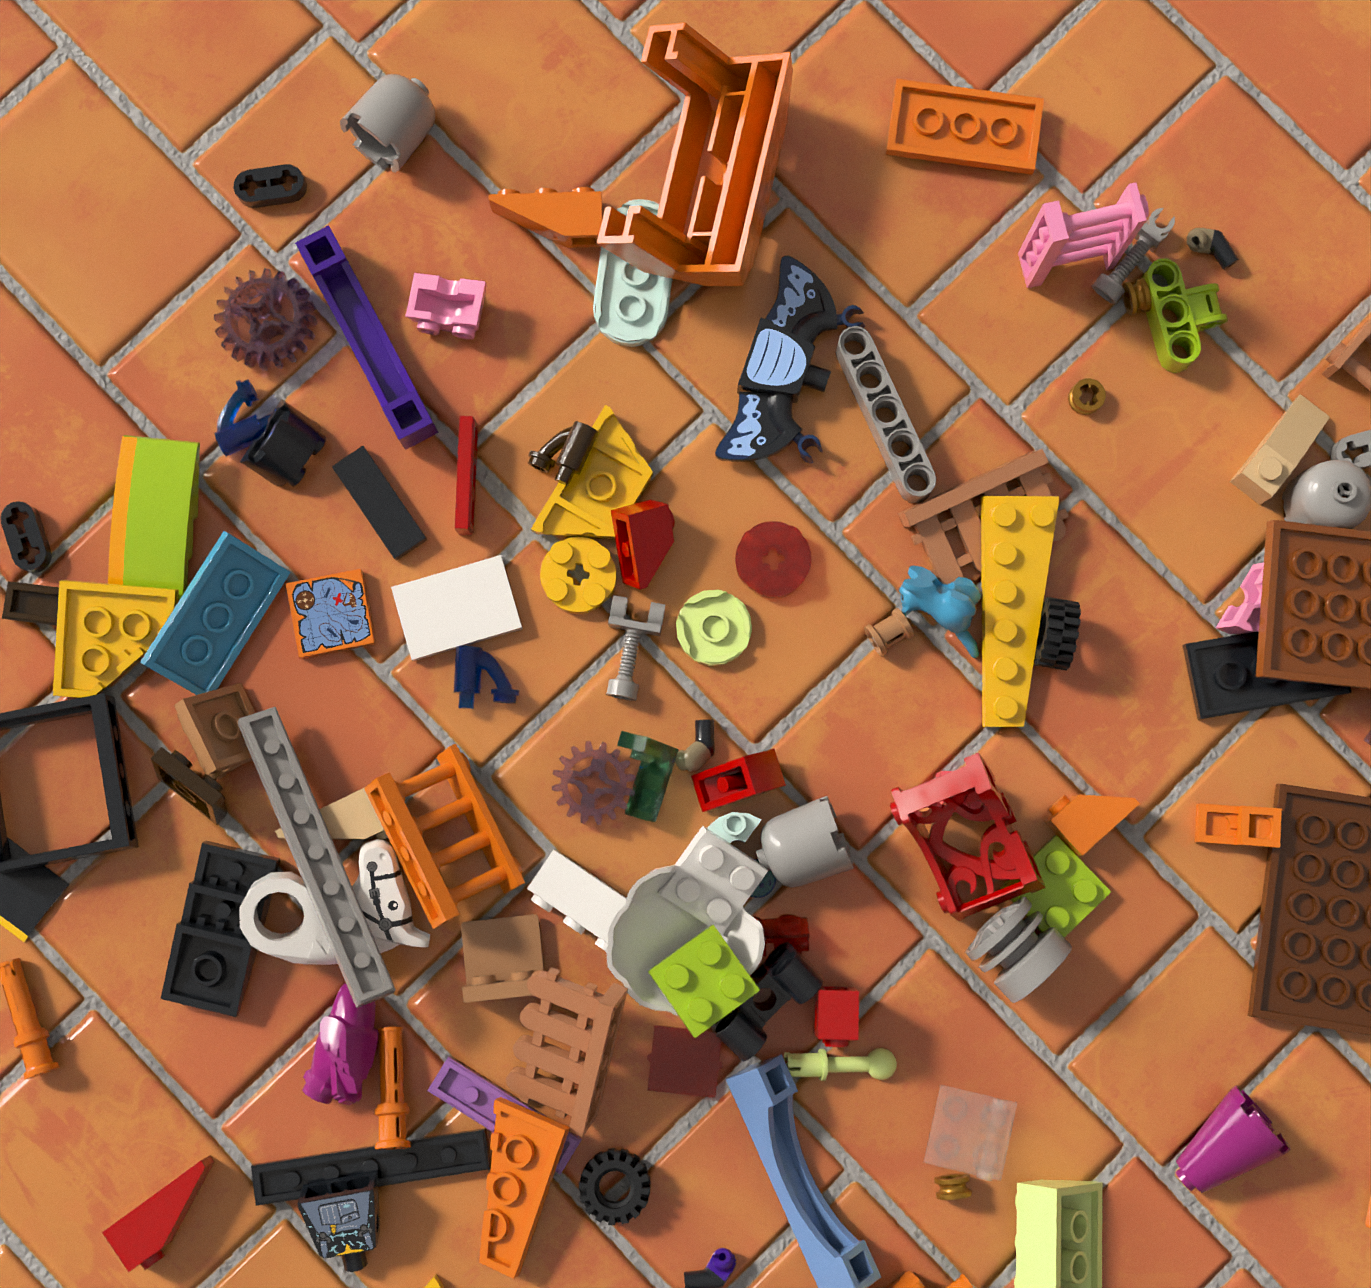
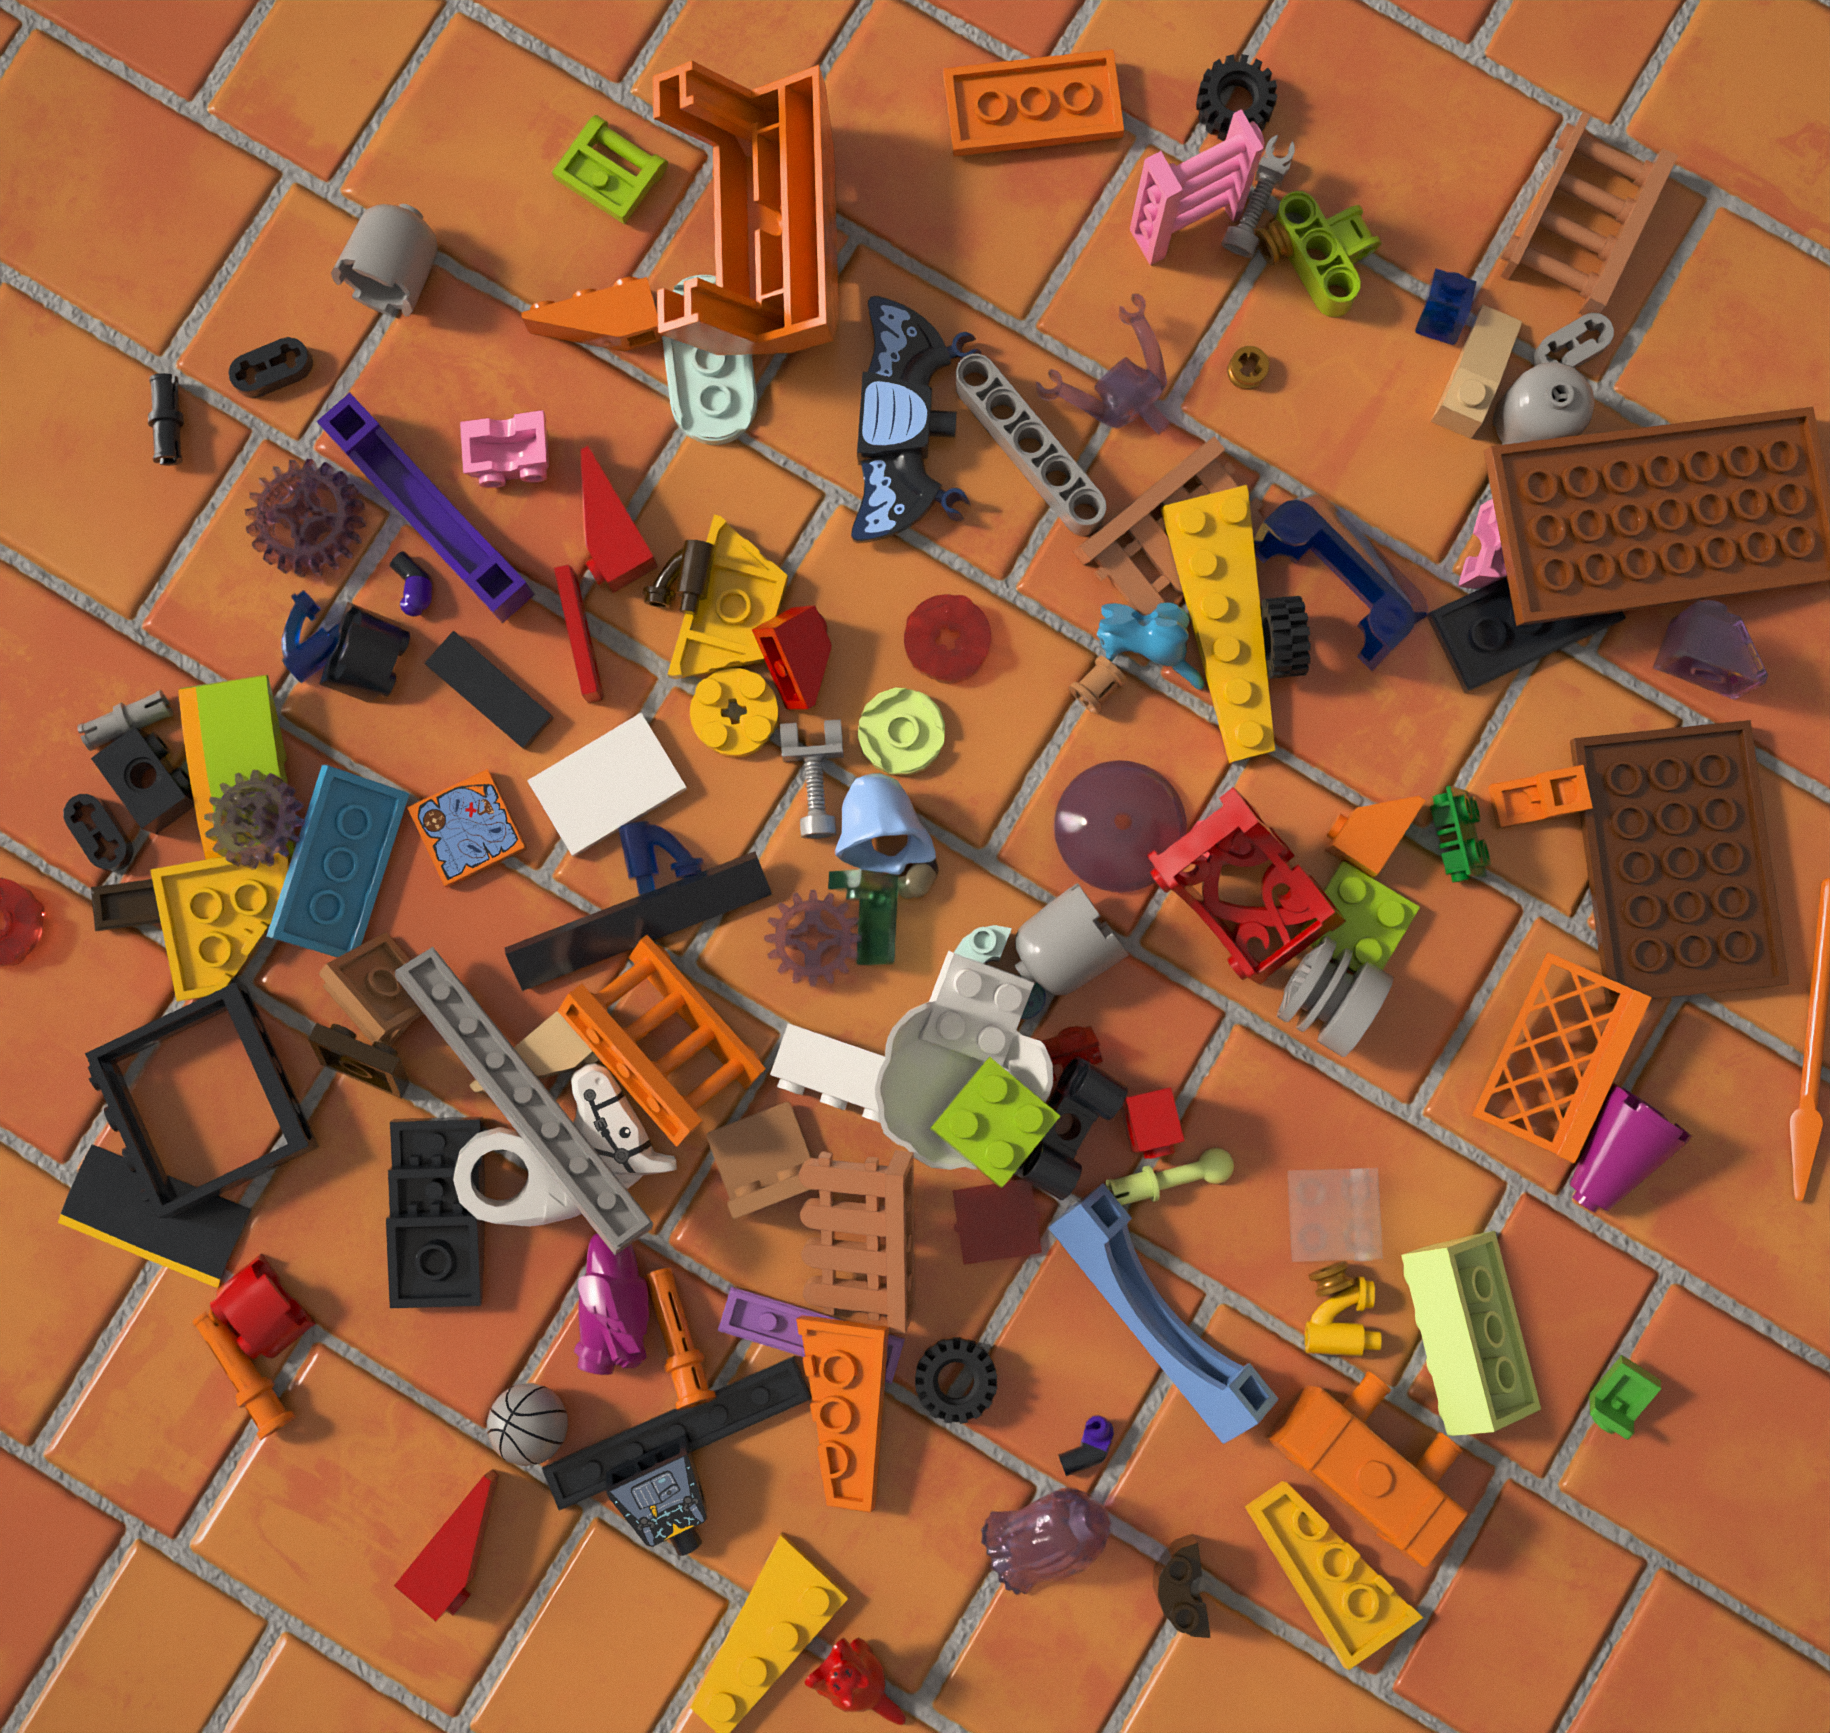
camera: 15 degrees left, 0 degrees up
(54, 971) = (260, 1310): none -> red cylinder
(60, 489) = (123, 768): none -> black brick
(72, 449) = (123, 718): none -> light grey pin
(171, 562) = (272, 814): none -> gear
(172, 207) = (165, 419): none -> black pin
(248, 1127) = (527, 1424): none -> light grey piece
(343, 400) = (417, 584): none -> dark purple arm
(443, 728) = (626, 923): none -> black tile
(514, 398) = (610, 534): none -> red slope
(586, 99) = (603, 180): none -> lime plate
(677, 690) = (875, 809): none -> light blue piece
(738, 780) = (973, 892): red slope -> none
(848, 759) = (1087, 832): none -> dish
(949, 1239) = (1348, 1339): none -> yellow plant
(980, 387) = (1127, 387): none -> piece
(1146, 147) = (1235, 74): none -> black tyre
(1157, 624) = (1319, 526): none -> clear blue windscreen
(1169, 821) = (1463, 811): none -> green hinge
(1212, 242) = (1340, 162): arm -> none
(1223, 1076) = (1599, 1071): none -> orange fence
(1268, 388) = (1446, 306): none -> clear blue bracket

